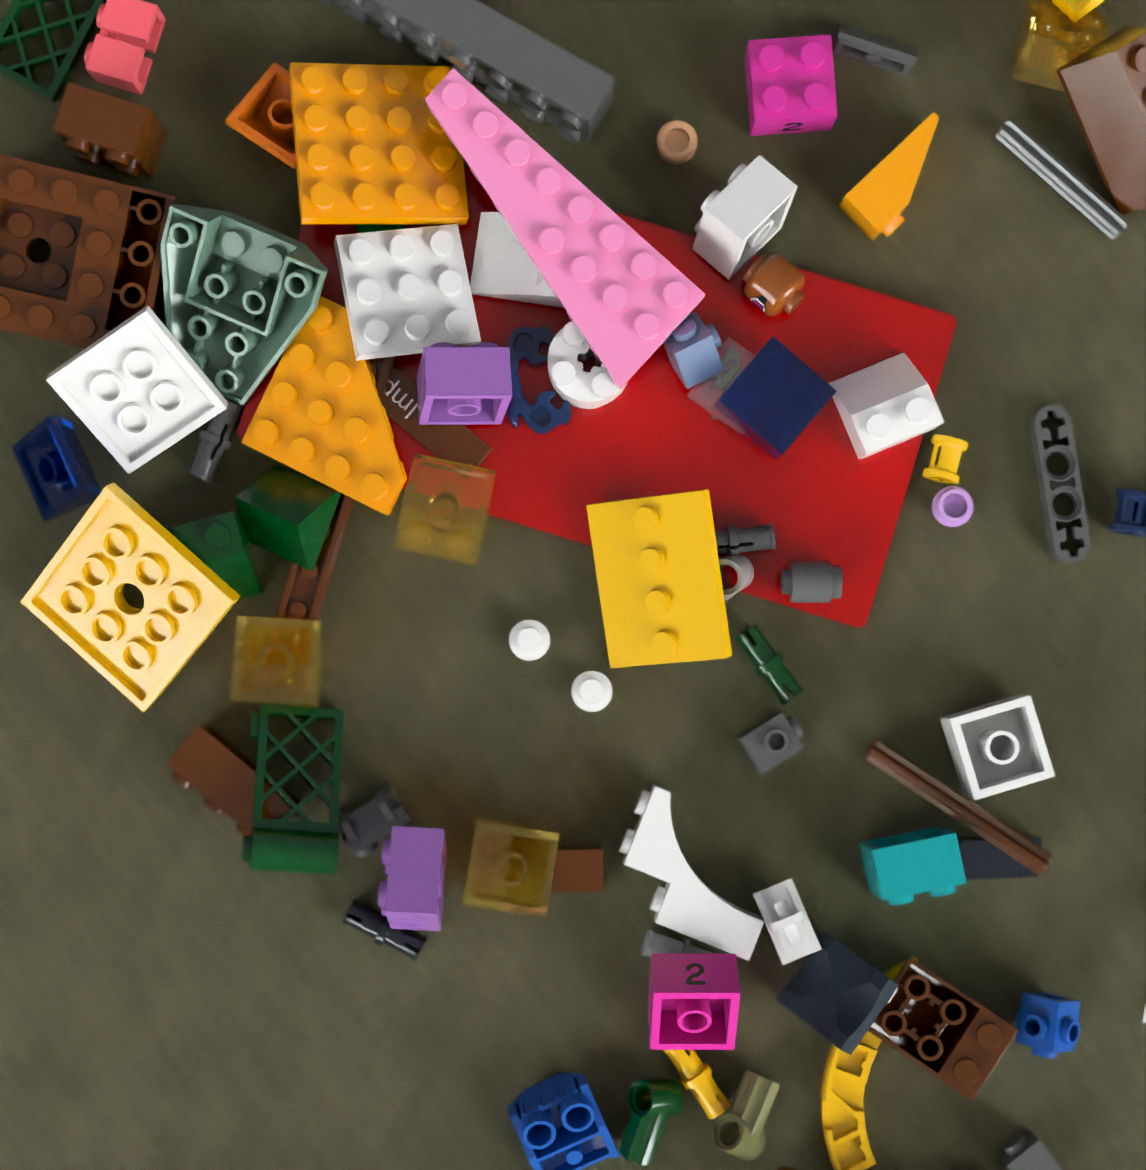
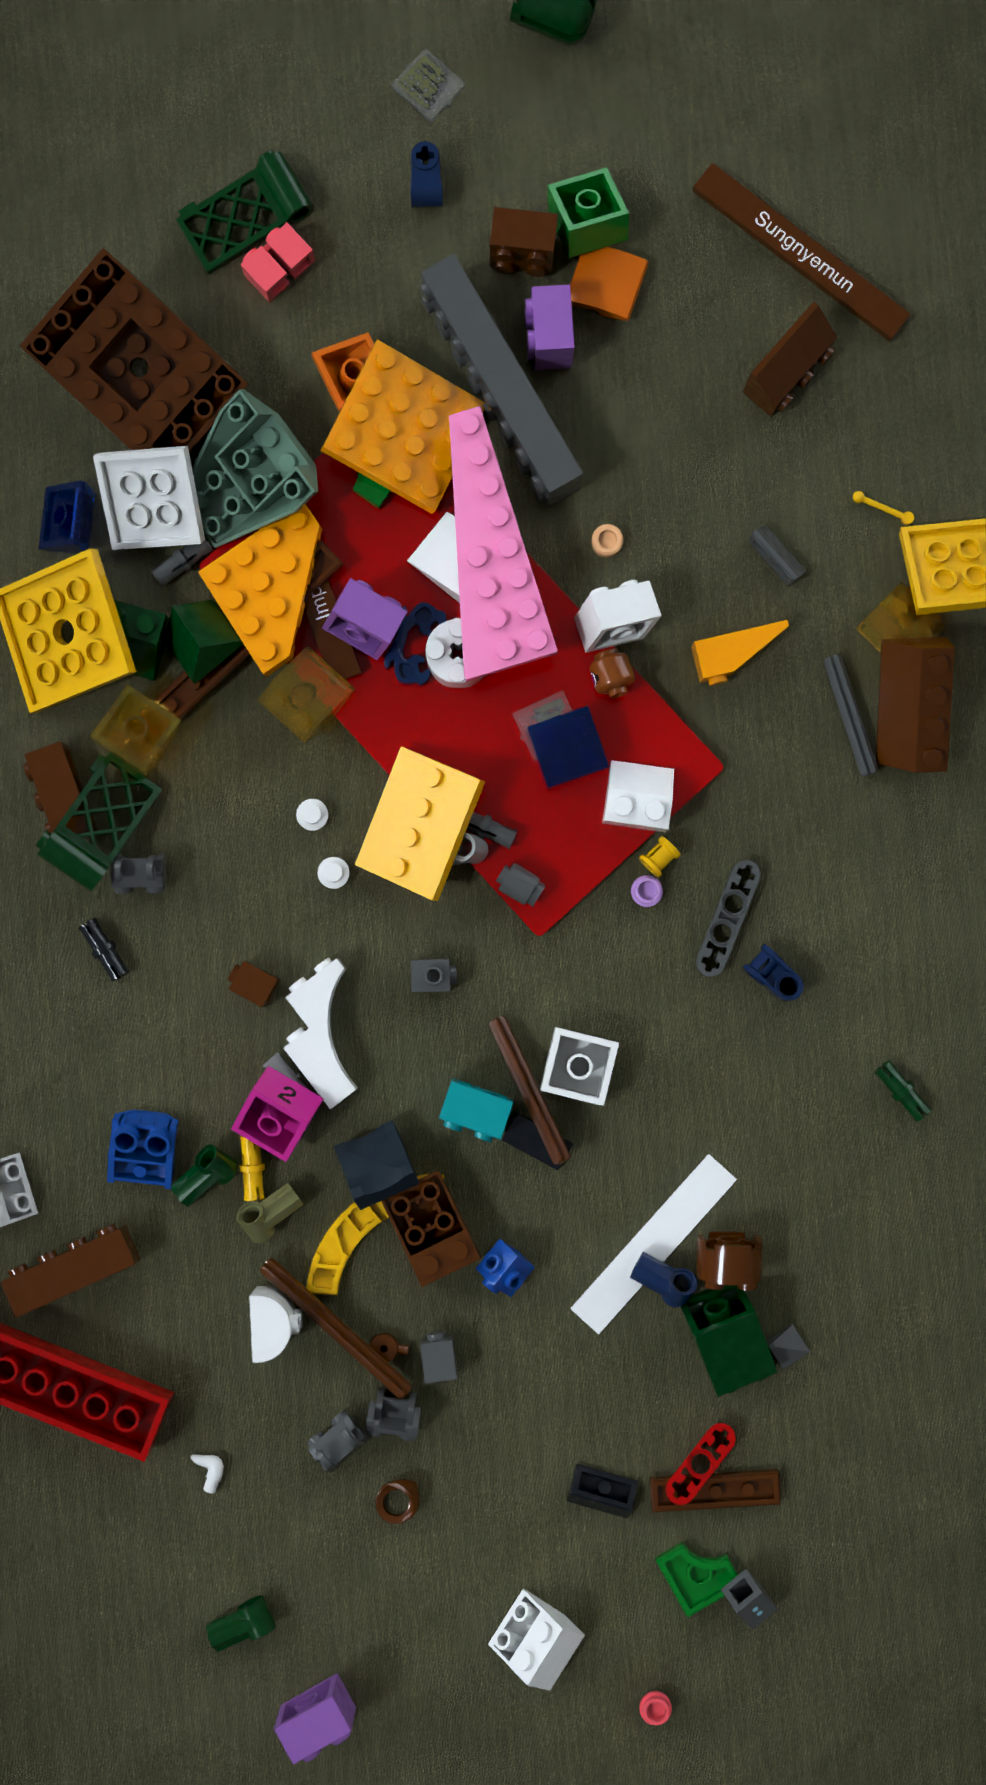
camera: 30 degrees right, 0 degrees up
(110, 131) = (232, 316): reddish brown brick -> none
(406, 290) = (365, 535): white plate -> none
(415, 878) = (142, 925): medium lavender brick -> none
(510, 866) = (209, 955): clear yellow slope -> none
(694, 351) = (531, 685): sand blue brick -> none
(769, 664) = (462, 924): dark green pin -> none
(787, 921) = (371, 1099): white hips -> none
(790, 85) = (703, 546): dark pink brick -> none

